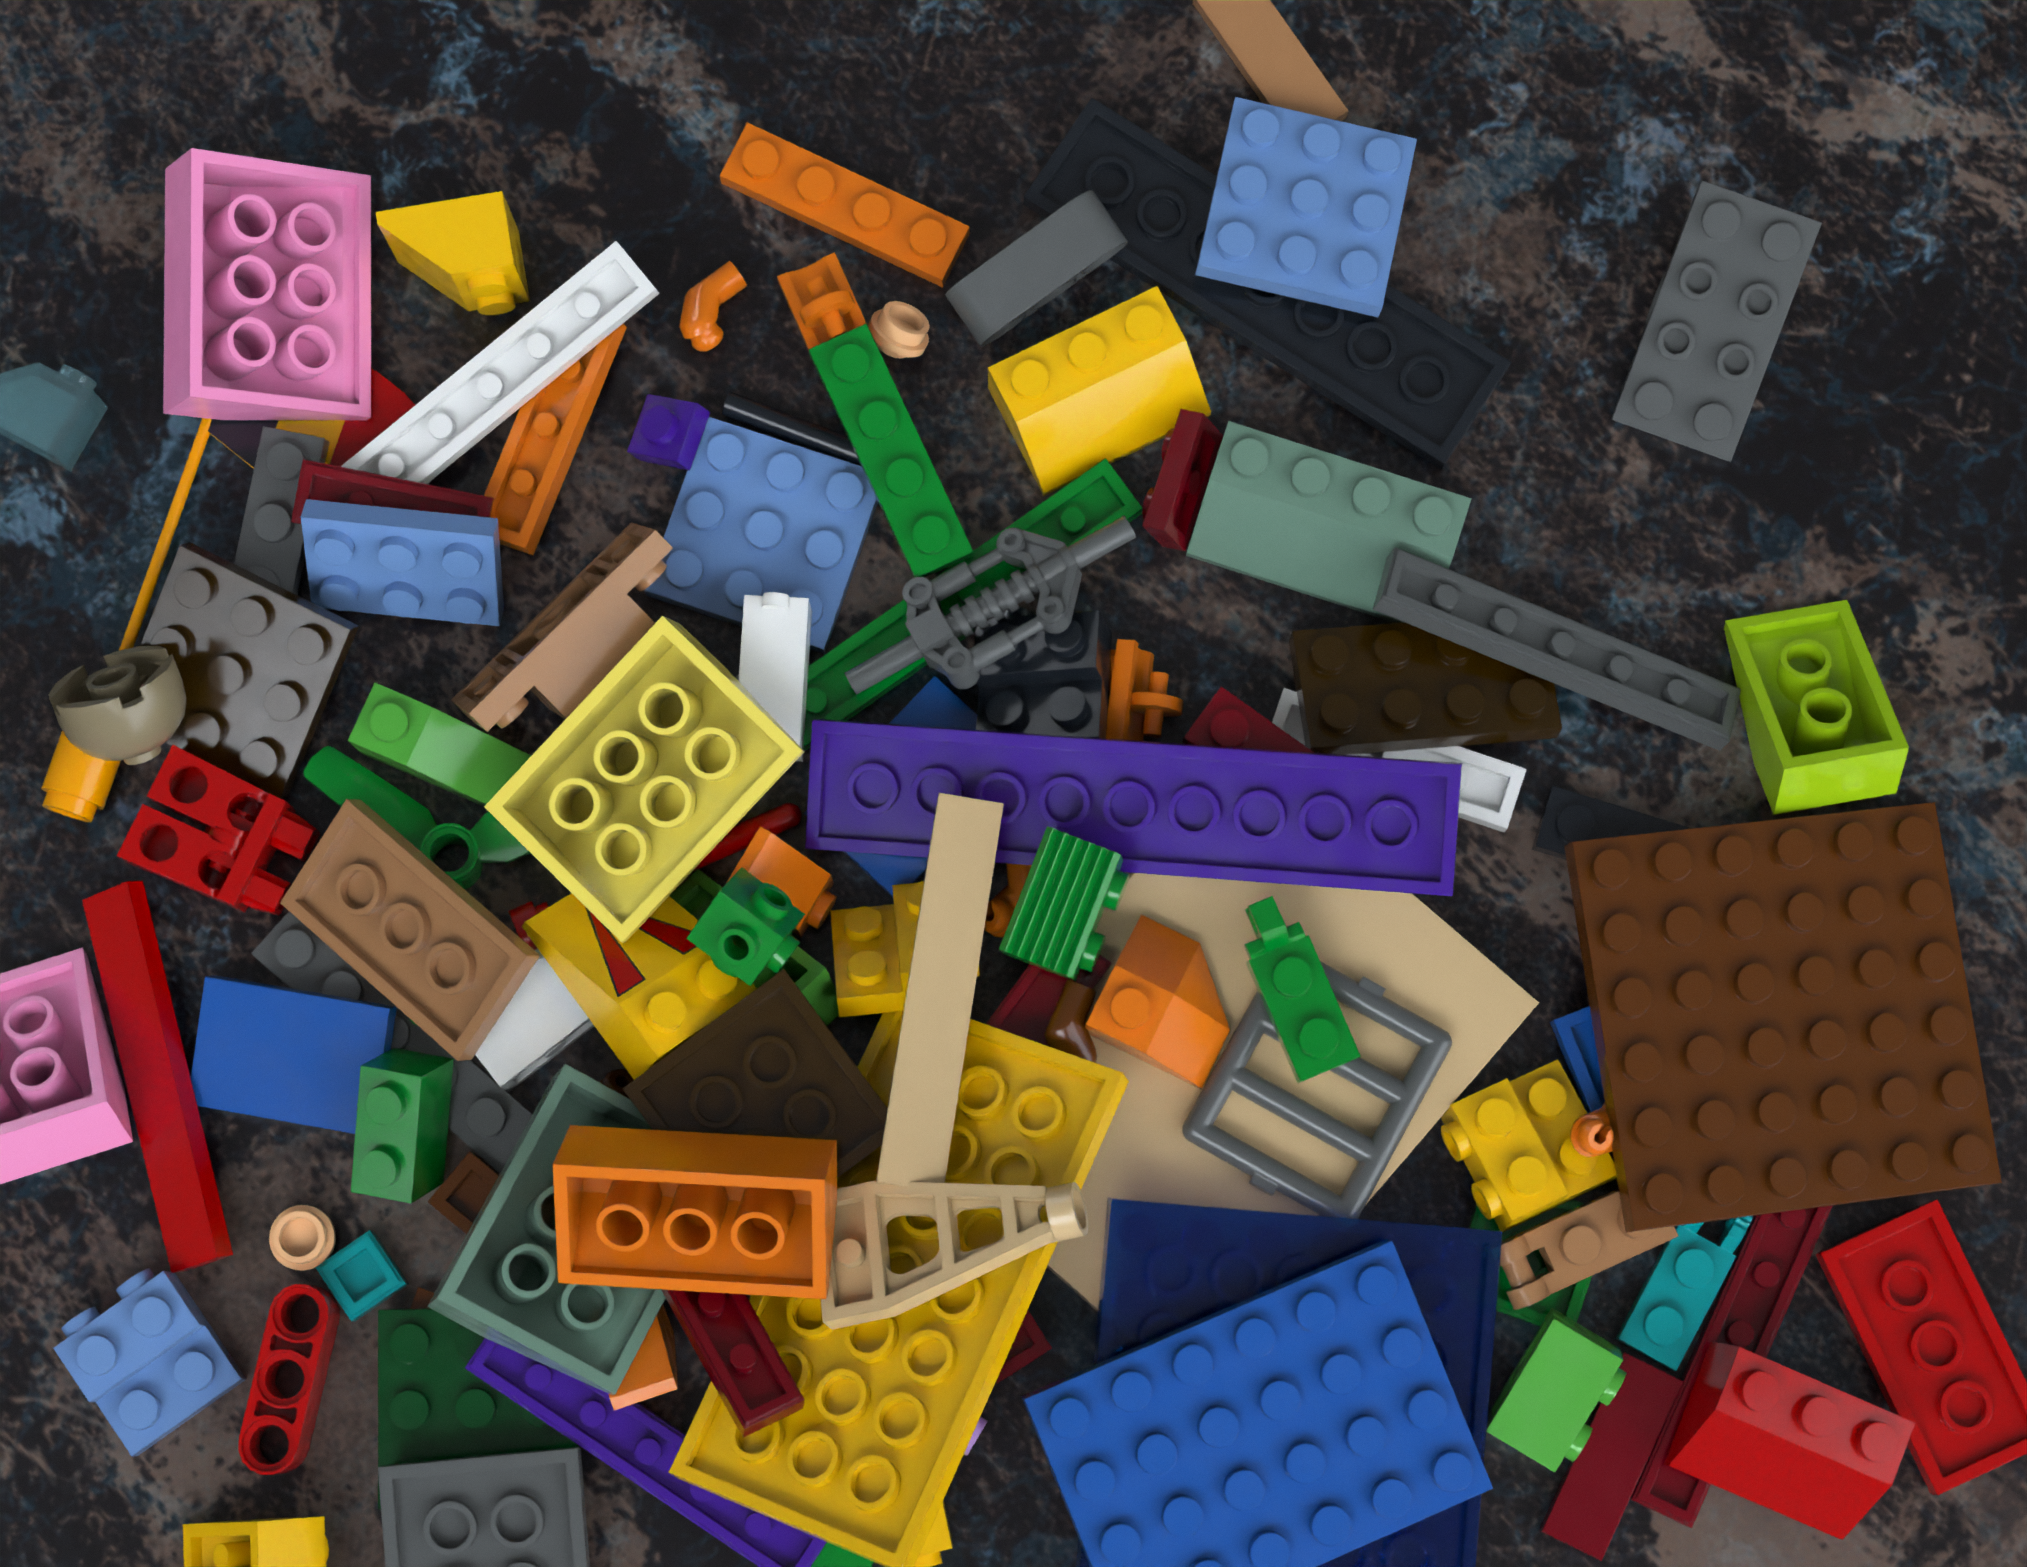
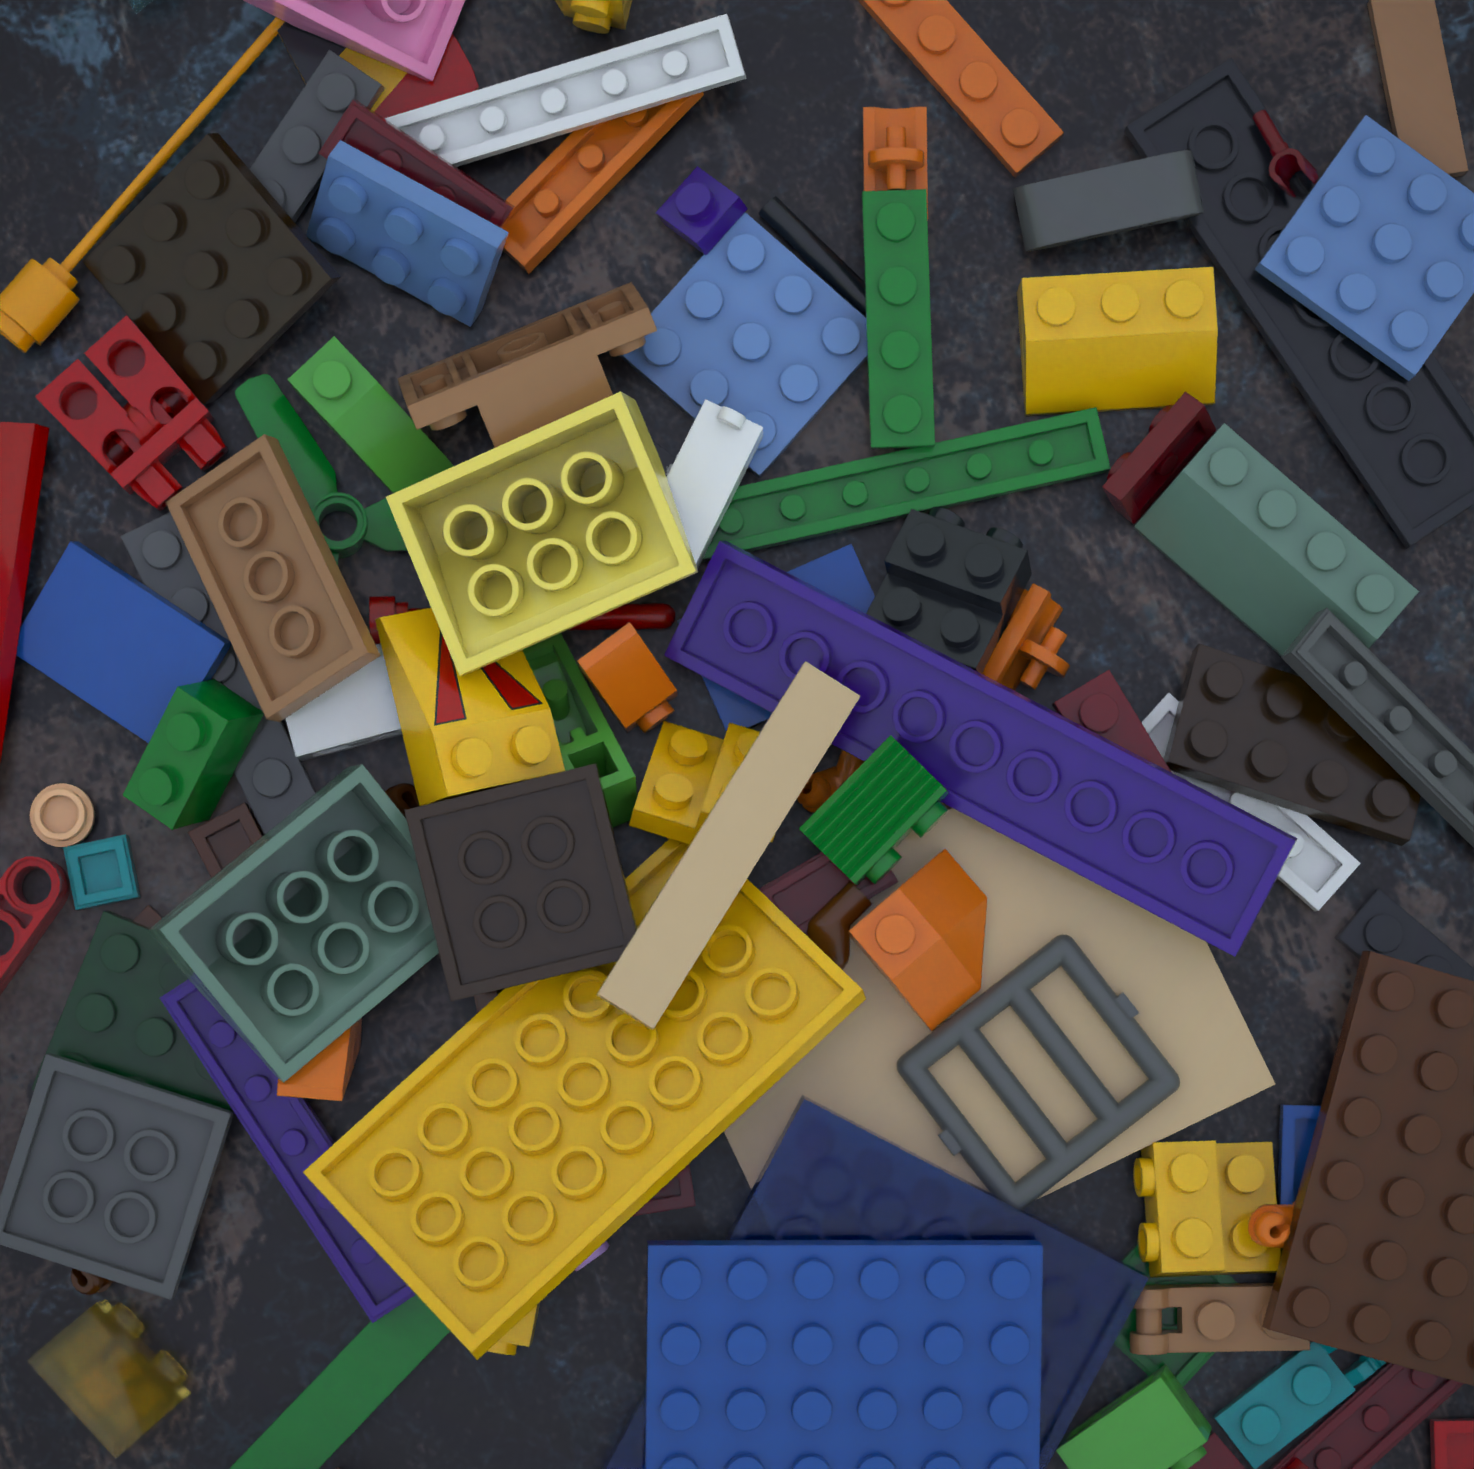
camera: 25 degrees right, 5 degrees up
(124, 707) = (95, 262): dark tan cylinder -> none
(695, 1211) = (423, 951): orange slope -> none
(703, 303) = (783, 103): orange arm -> none
(737, 1357) = (405, 1072): dark red tile -> none
(748, 928) = (578, 712): green brick -> none
(860, 1270) = (551, 1049): tan plate -> none
(900, 330) = (957, 204): light nougat plate -> none
(1050, 570) = (864, 508): dark grey bar -> none
(1180, 165) = (1285, 160): none -> dark red hand
(1297, 994) = (1054, 984): green hinge -> none

